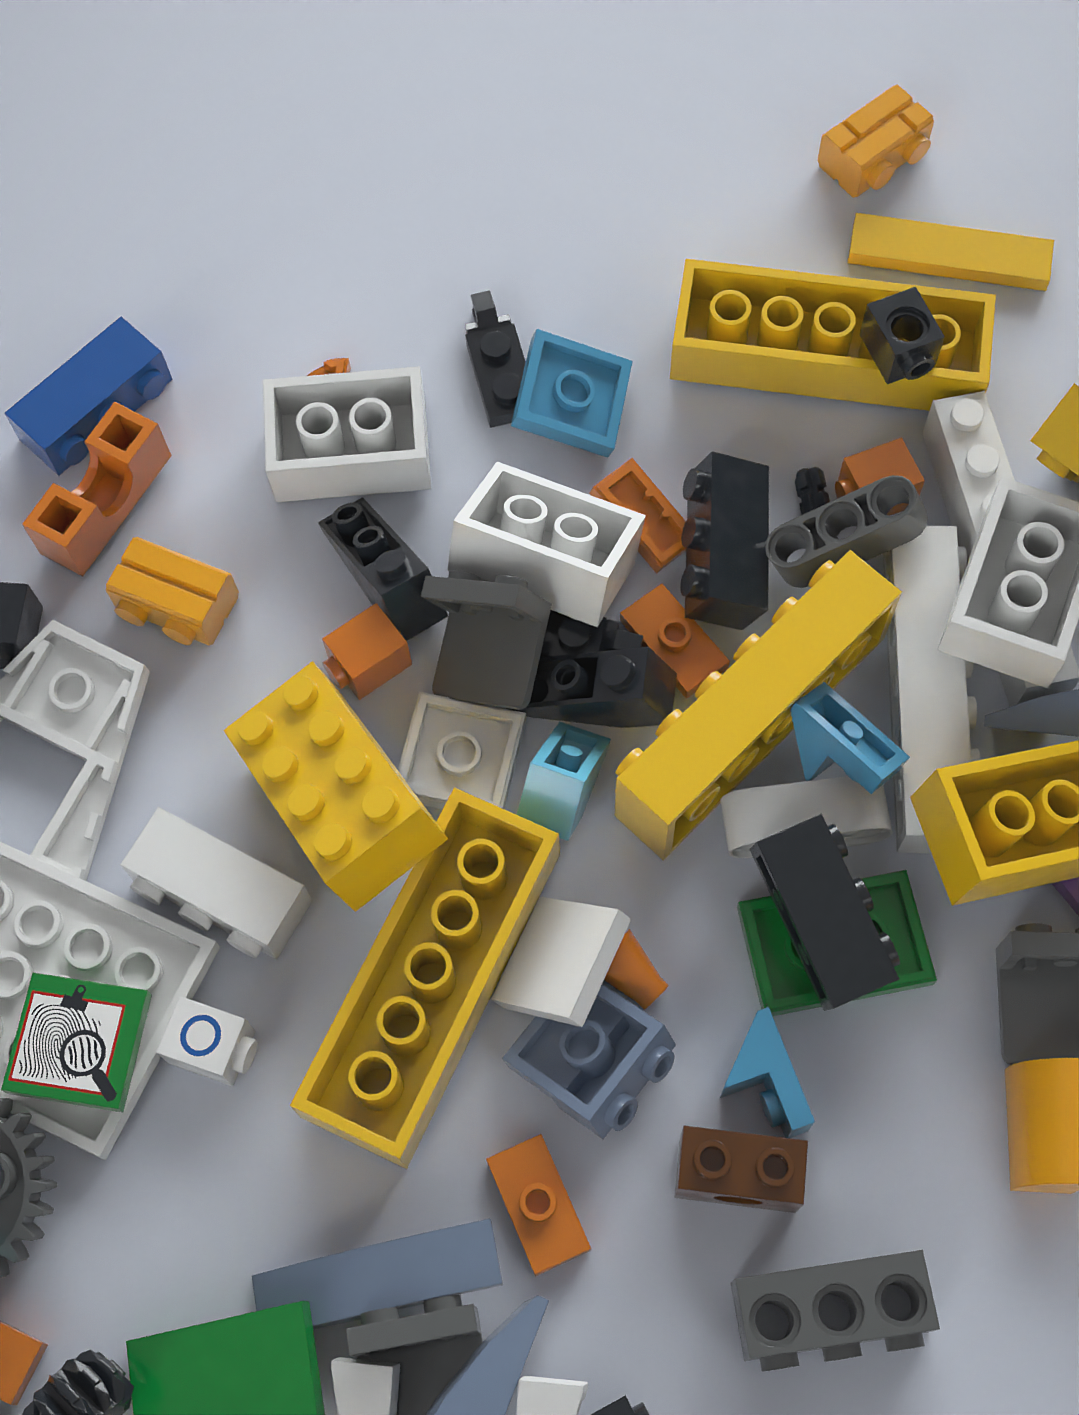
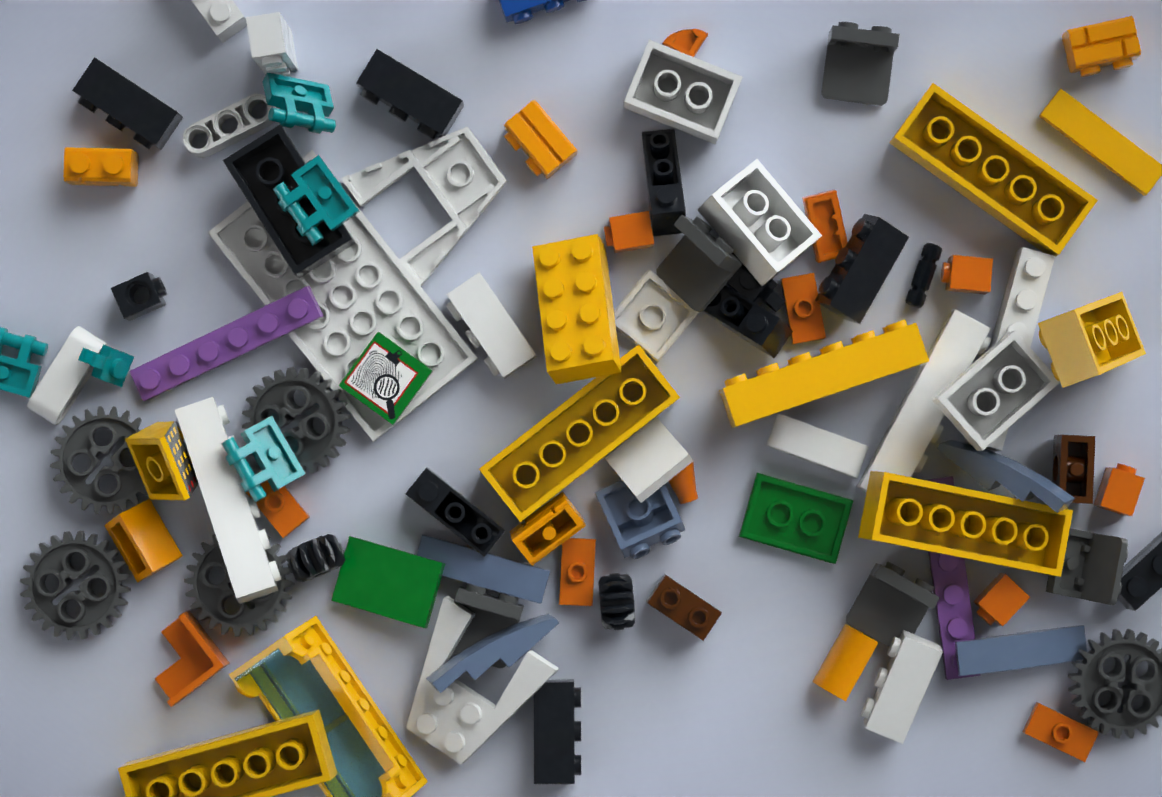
camera: 25 degrees right, 20 degrees up
(123, 462) = (535, 51): orange arch -> none
(208, 1041) = (451, 409): white brick -> none
(283, 1201) = (455, 511): none -> black slope
(453, 1152) = (547, 528): none -> light orange brick
(495, 359) = (794, 82): black hinge -> none
(562, 778) = (700, 360): medium azure slope -> none
(572, 290) = (859, 63): none -> dark grey bracket
(572, 393) = (825, 128): dark azure plate -> none
(627, 1216) = (616, 601): none -> black gear
(767, 1062) = (725, 559): dark azure slope -> none
(825, 912) = (795, 505): black brick -> none
(836, 732) = (855, 415): dark azure slope -> none
(859, 1285) = (711, 686): dark grey brick -> none
(861, 508) = (939, 312): dark grey beam -> none
(898, 318) = (1029, 193): black brick -> none

